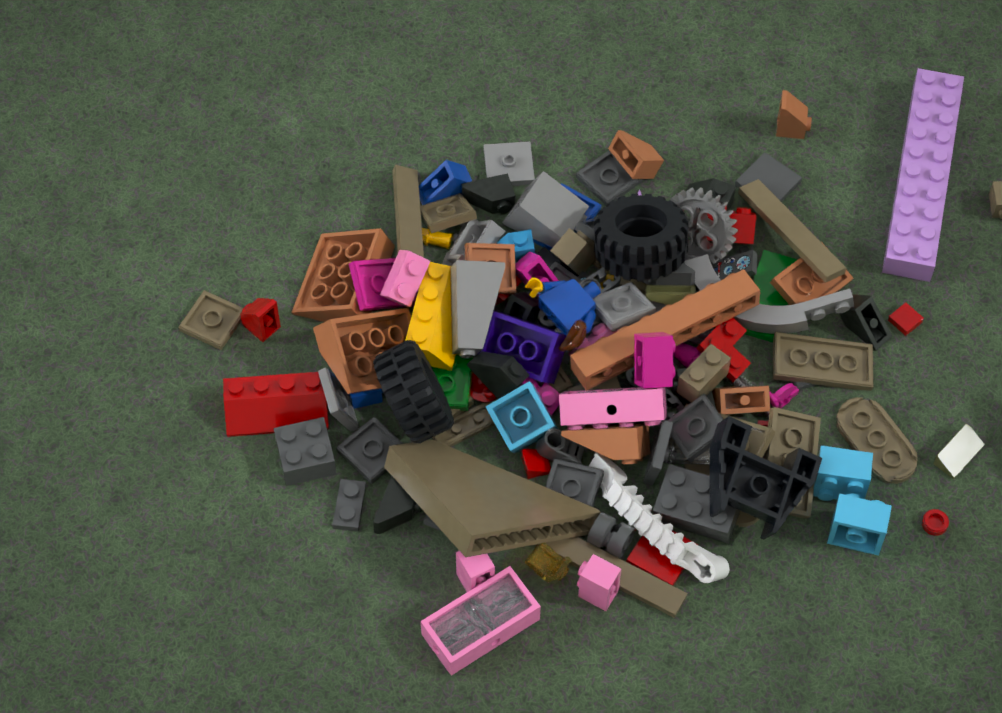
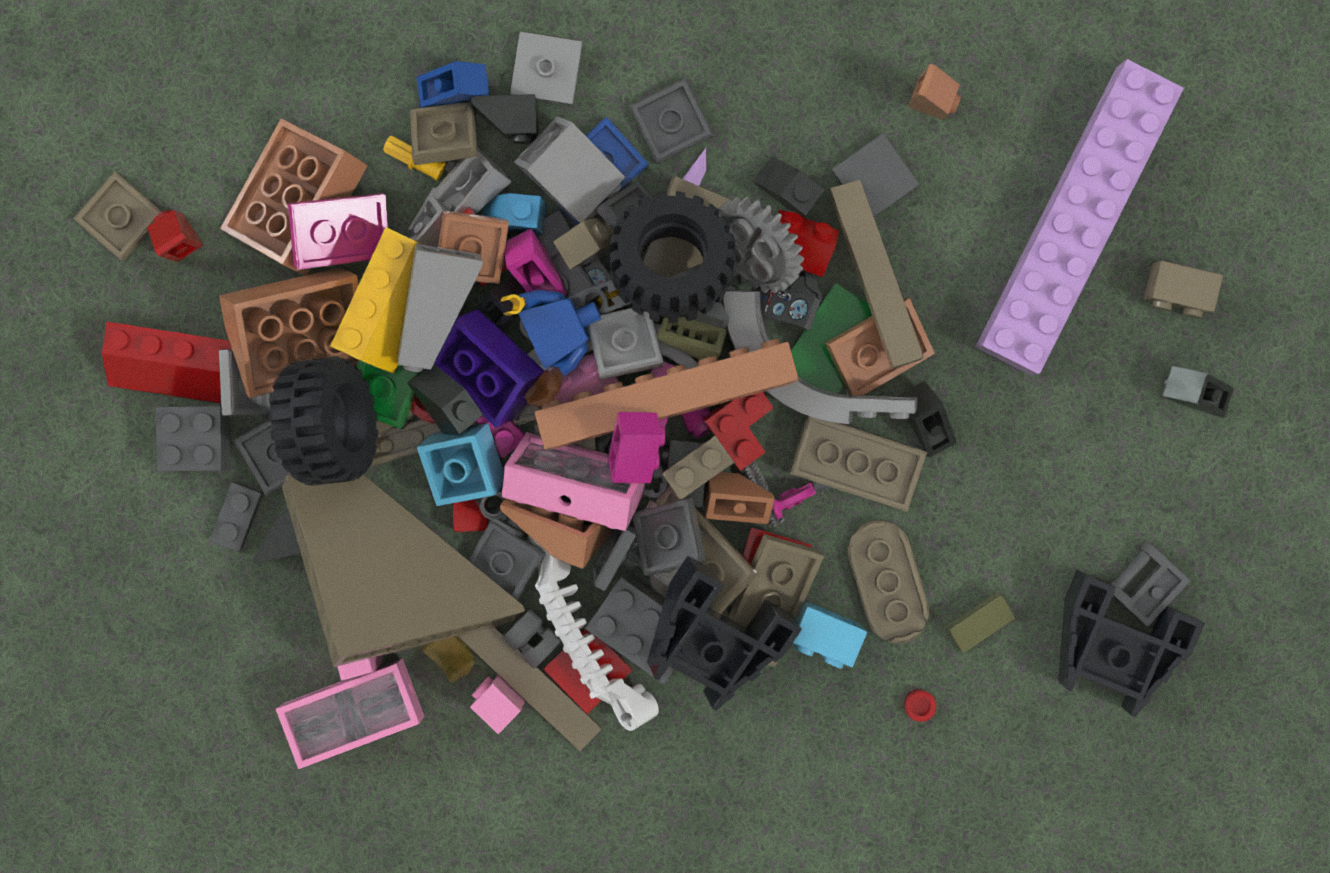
camera: 15 degrees right, 30 degrees up
(405, 278) = (354, 244): bright pink brick -> none
(407, 210) = (389, 136): dark tan tile -> none
(635, 156) = (711, 104): nougat slope -> none
(859, 524) = (825, 702): medium azure brick -> none
(905, 319) = (980, 424): red tile -> none

